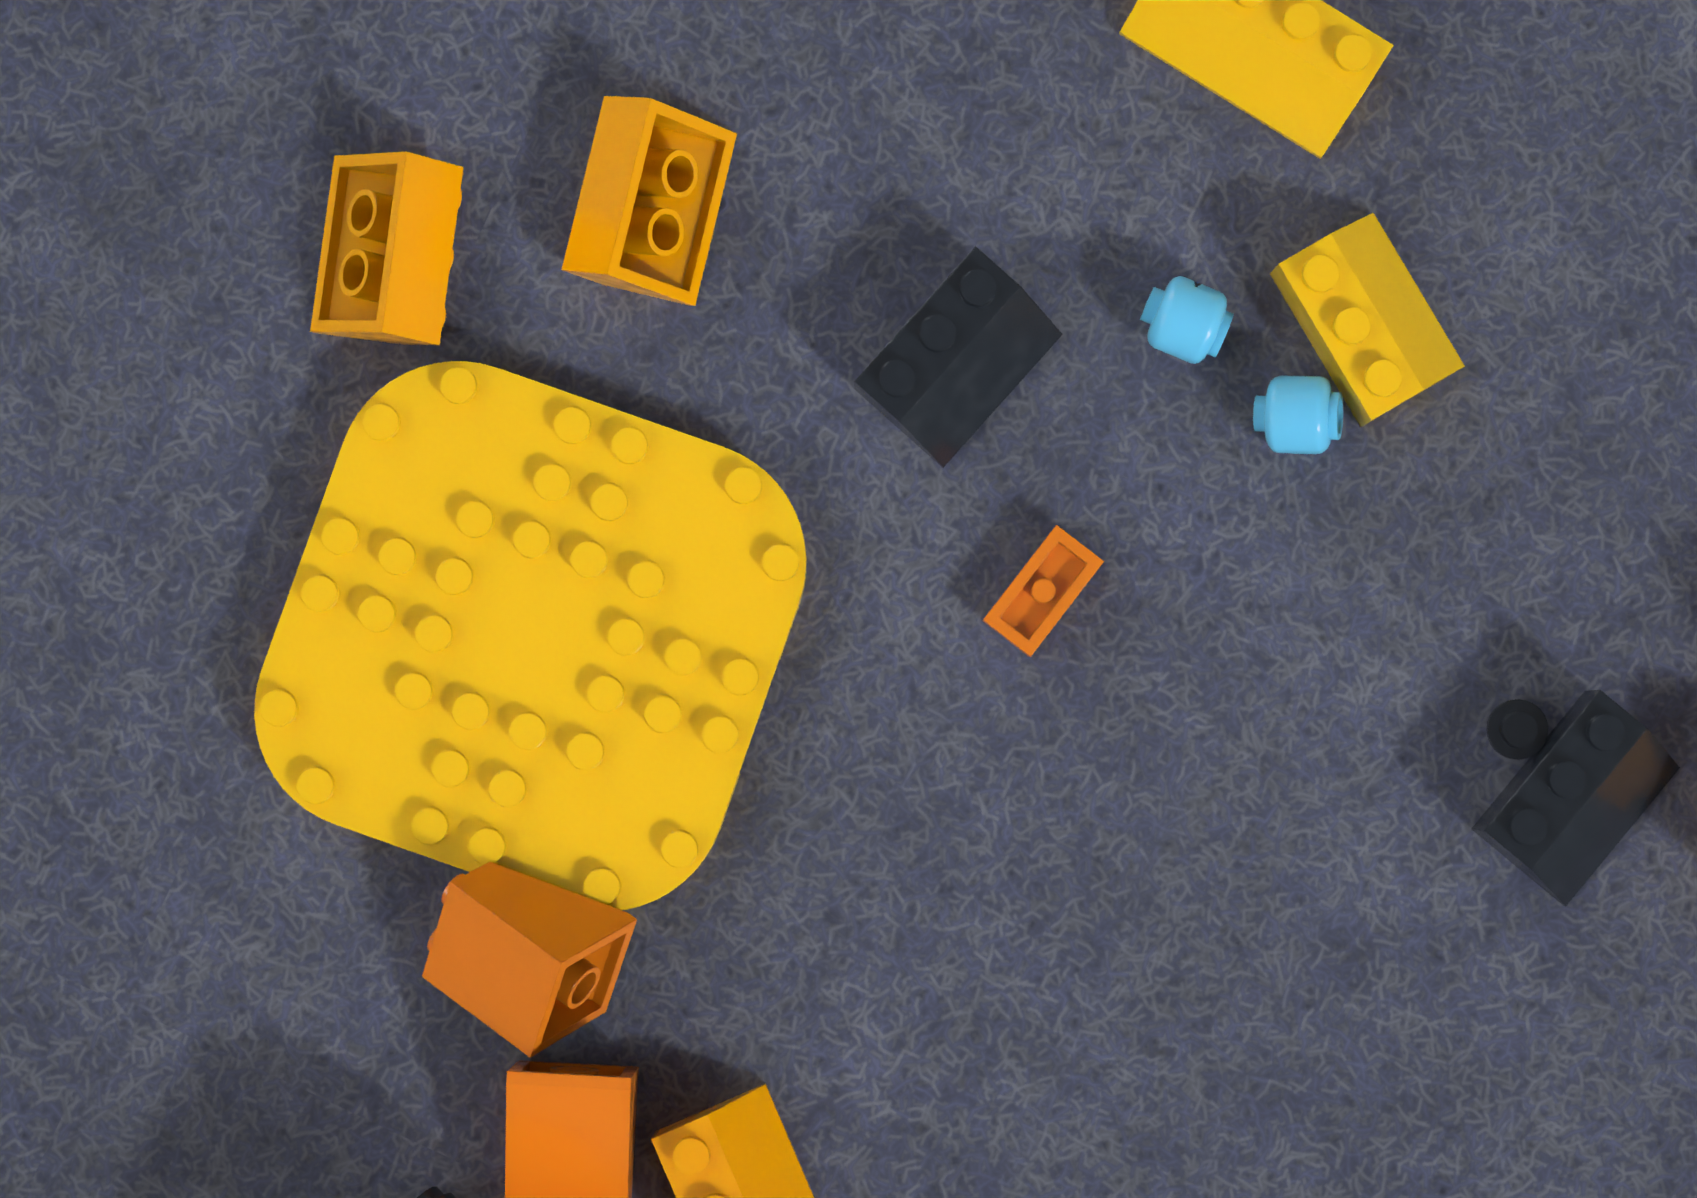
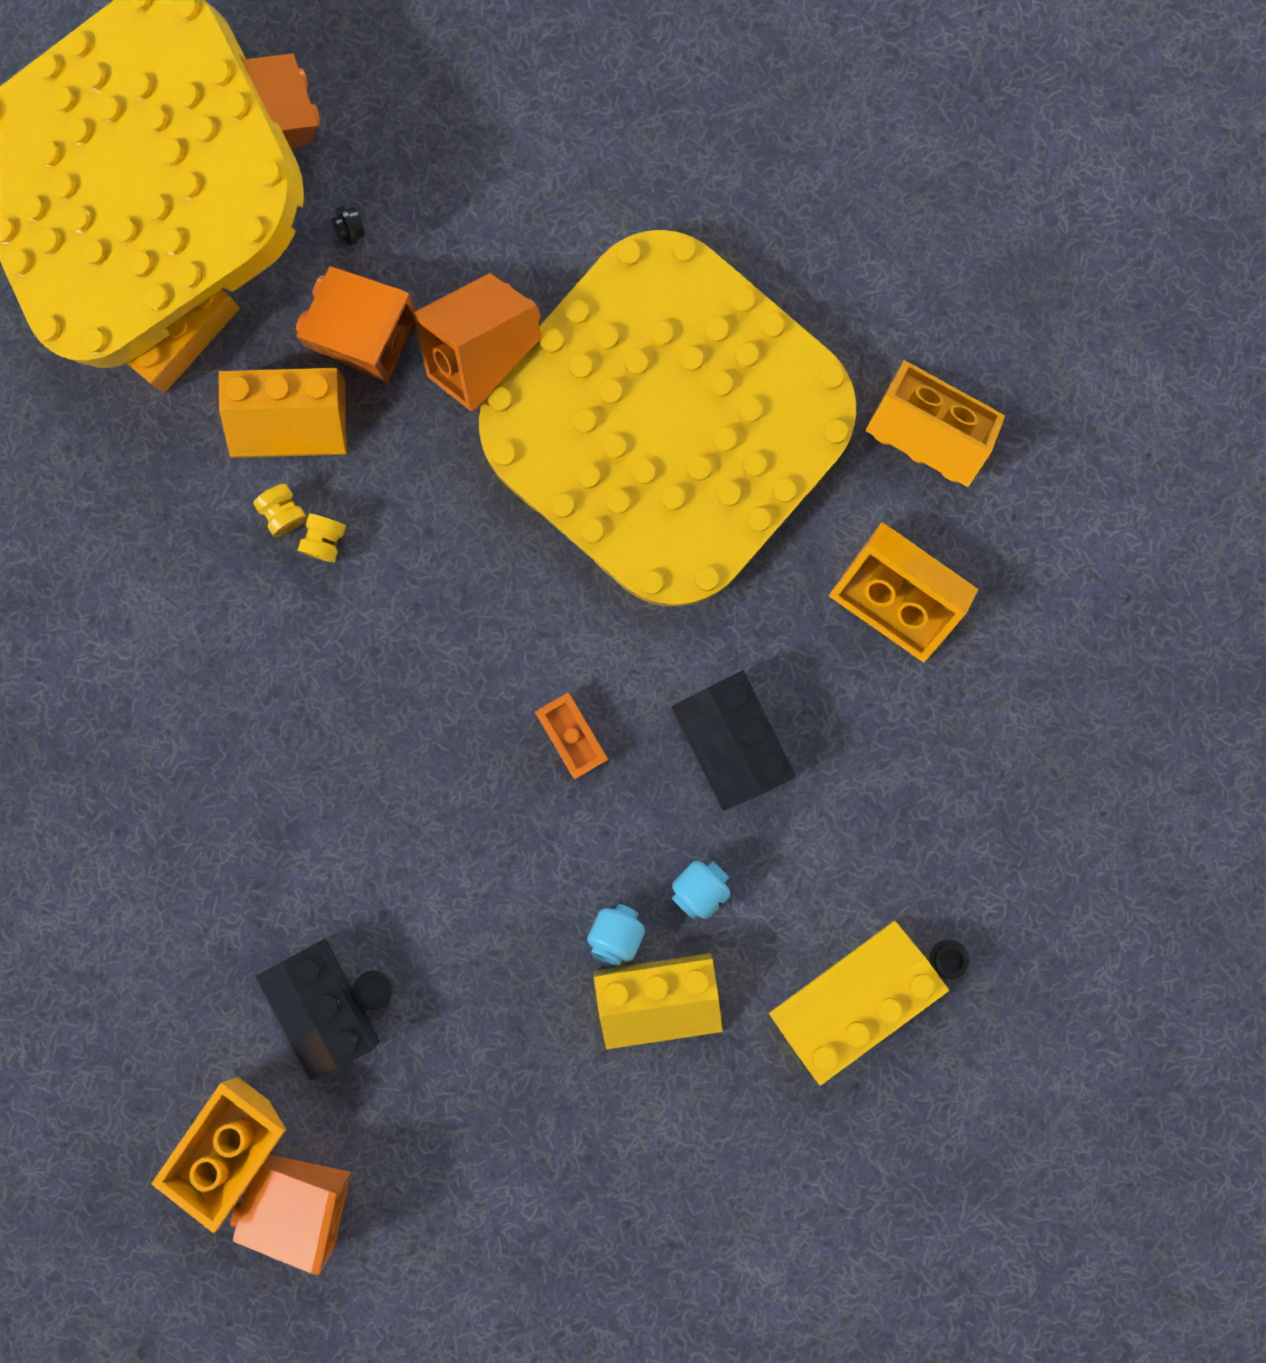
camera: 115 degrees right, 0 degrees up
(887, 1143) = (280, 510): none -> yellow wheel
(903, 1065) = (321, 538): none -> yellow wheel

